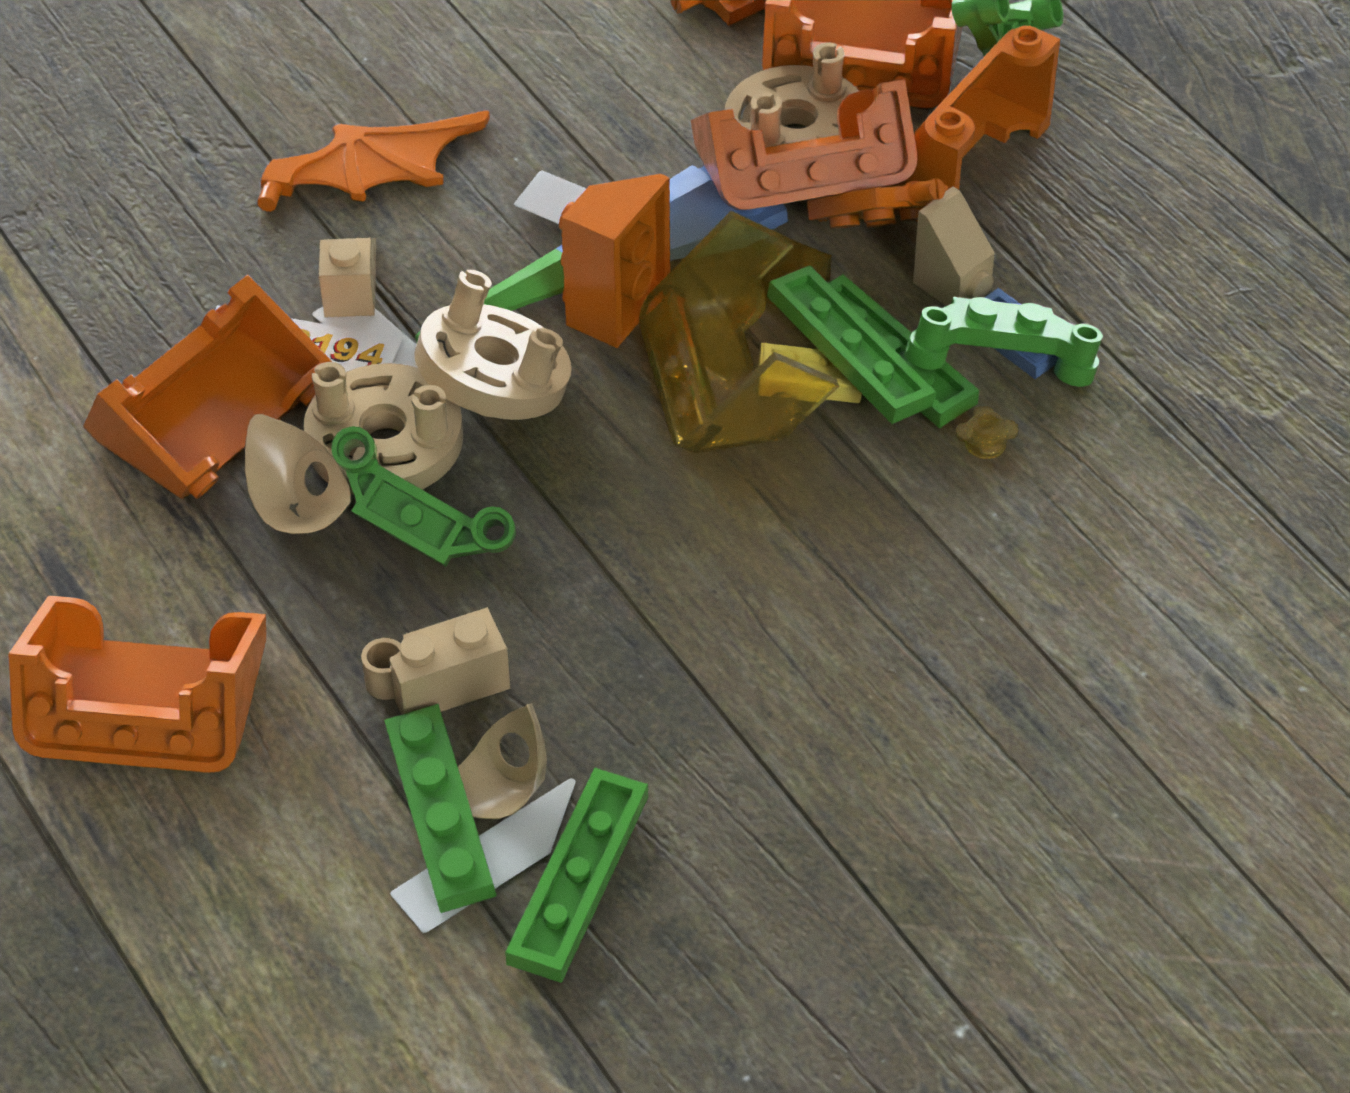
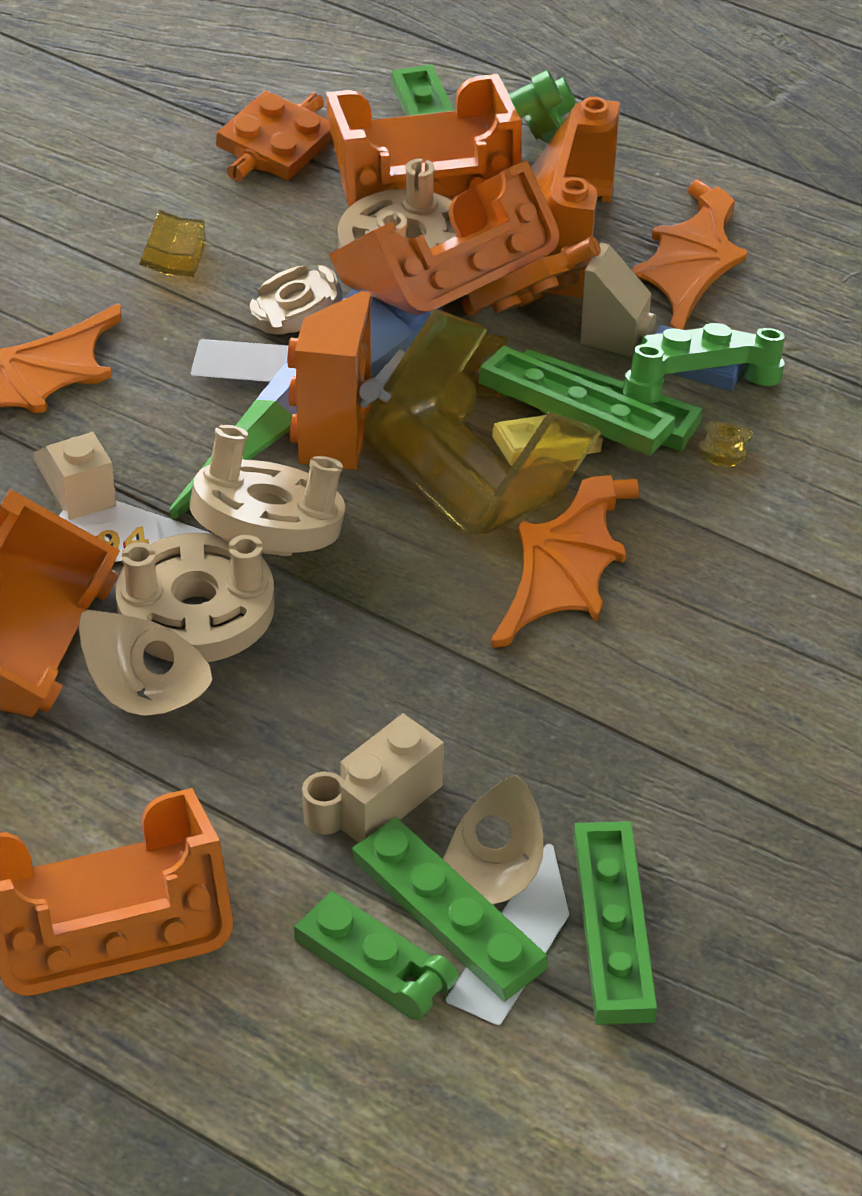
camera: 25 degrees left, 5 degrees down
(348, 826) = (375, 955): none -> bright green plate
(412, 513) = (271, 658): bright green plate -> none
(573, 64) = (174, 245): none -> clear yellow piece
(644, 274) = (374, 387): none -> light grey piece
(652, 151) = (293, 296): none -> tan tile
(759, 501) = (567, 557): none -> orange animal
(1082, 220) = (692, 253): none -> orange animal

